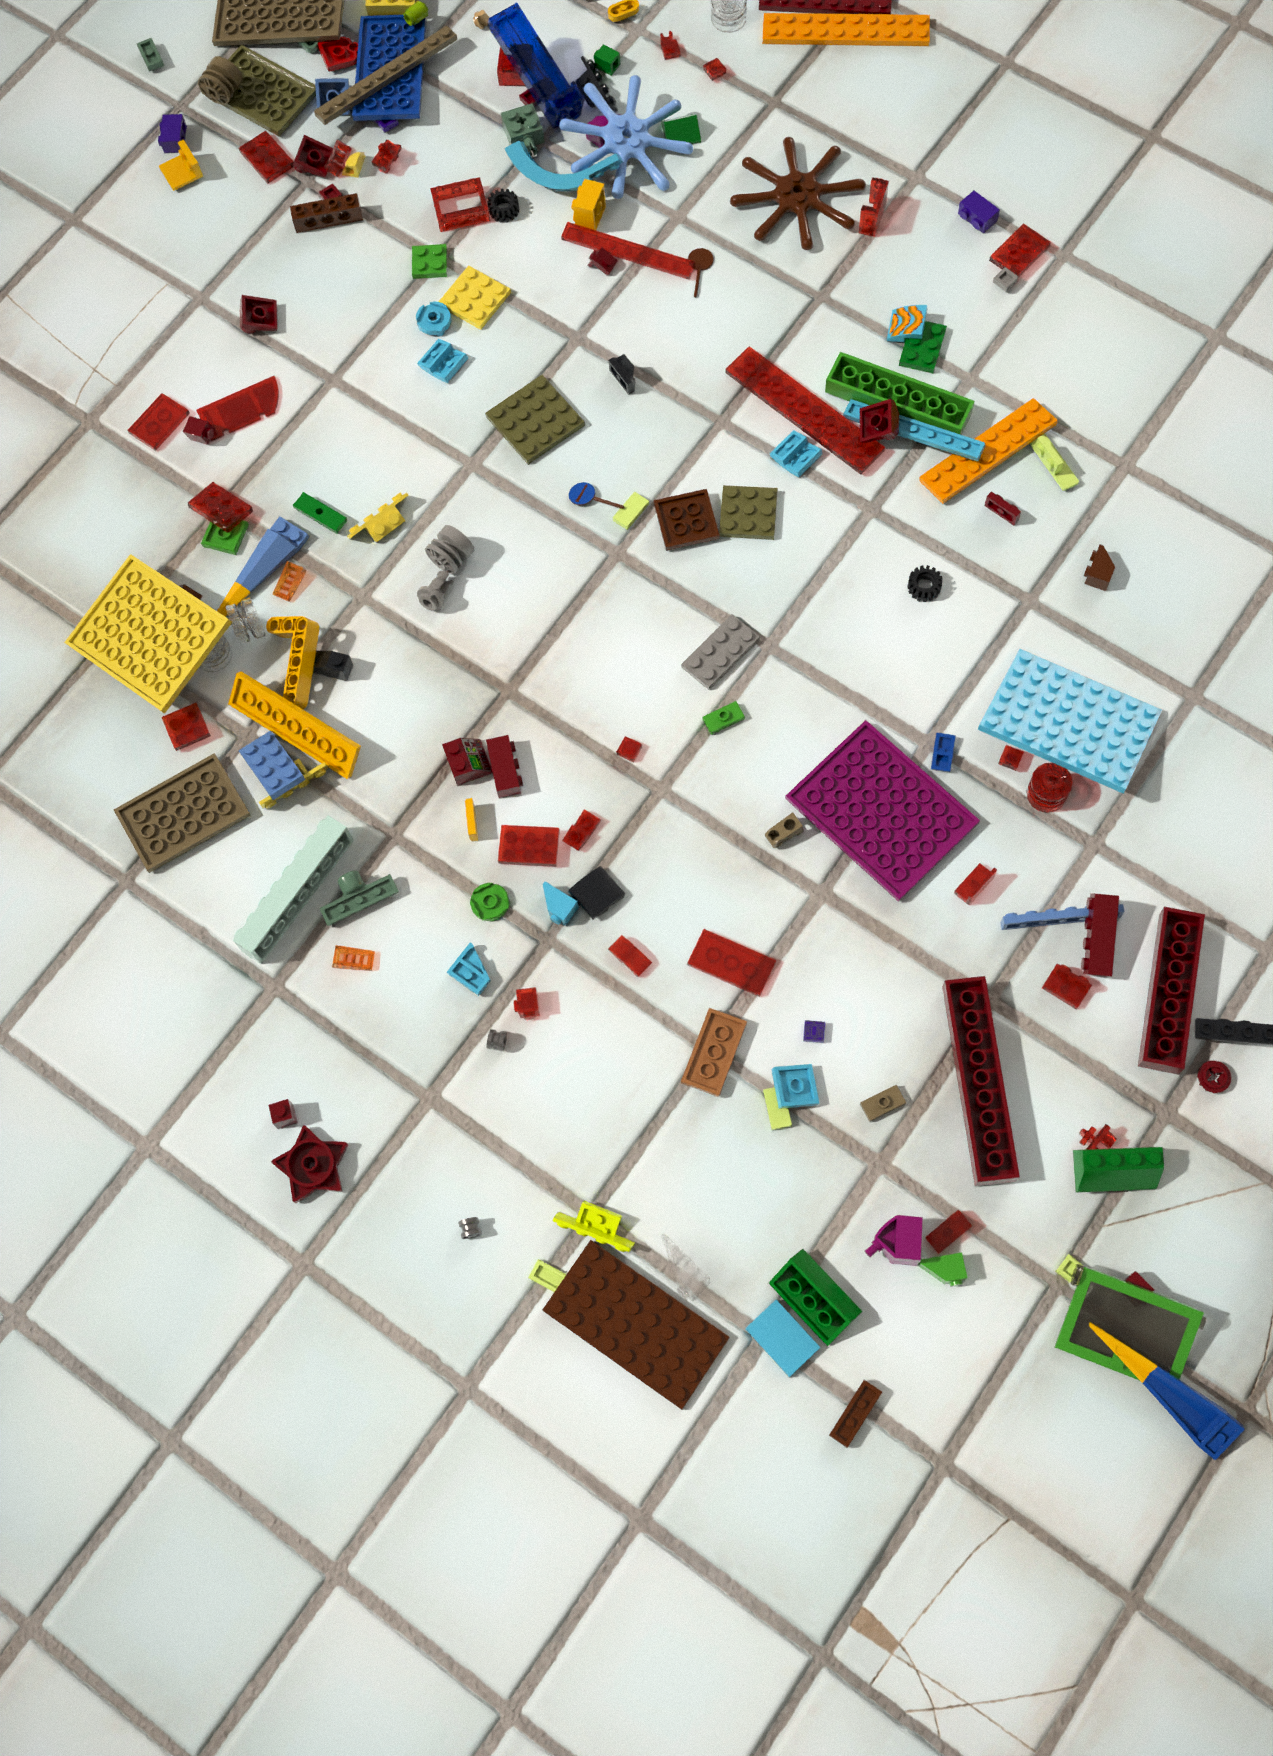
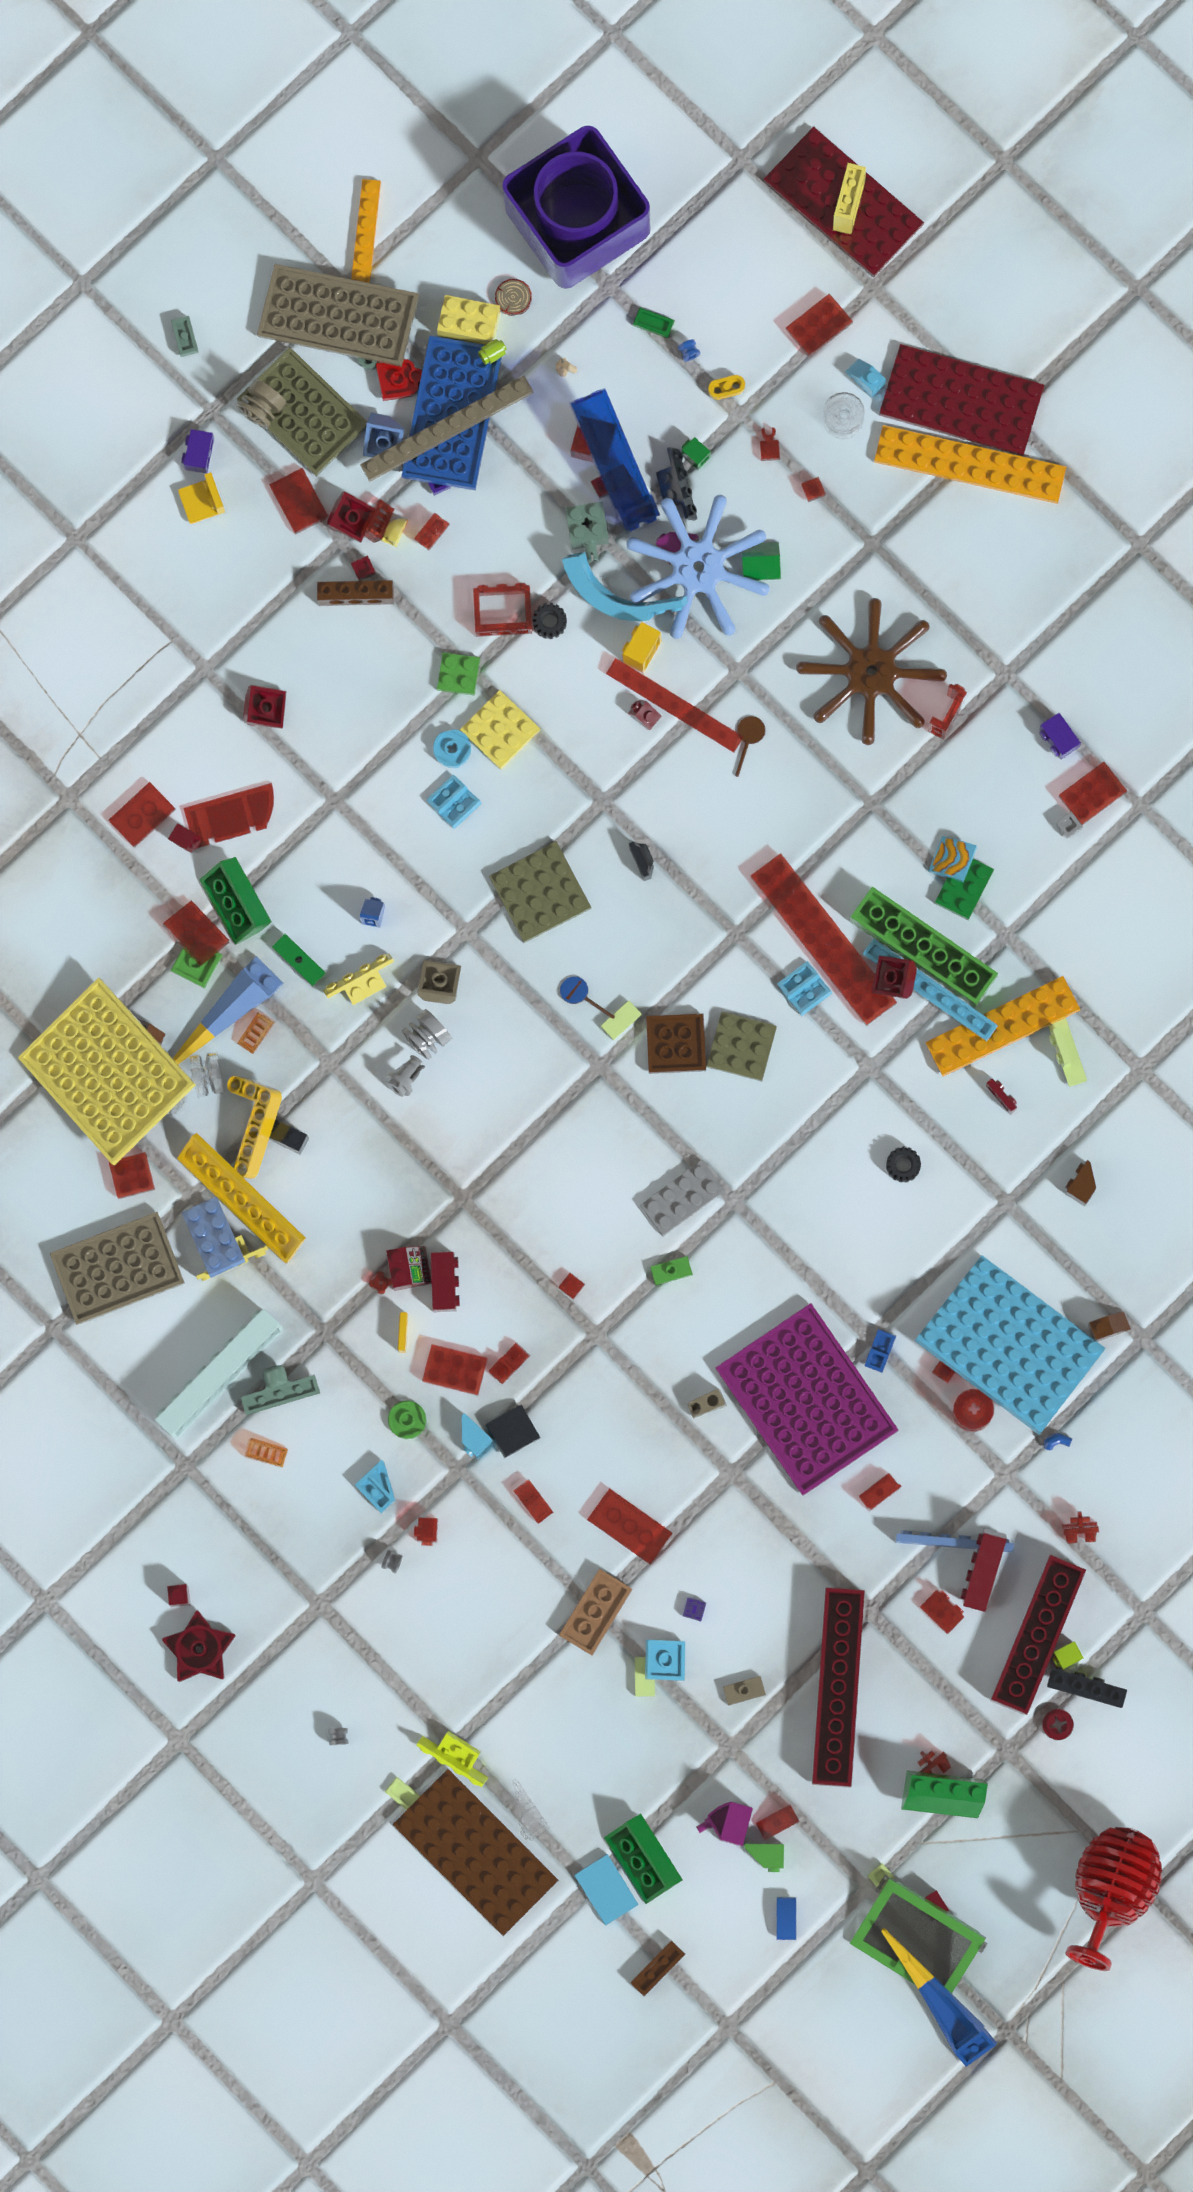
camera: 10 degrees right, 10 degrees up
(253, 473) = (235, 900): none -> green slope
(382, 461) = (372, 912): none -> blue slope
(446, 782) = (375, 1282): none -> clear red plate
(454, 507) = (439, 982): none -> dark tan slope
(981, 1332) = (786, 1918): none -> blue slope
(1137, 801) = (1055, 1439): none -> blue arm
(1158, 689) = (1108, 1326): none -> reddish brown slope
(1176, 884) = (1078, 1527): none -> clear red hips
(1207, 1005) = (1067, 1656): none -> lime brick

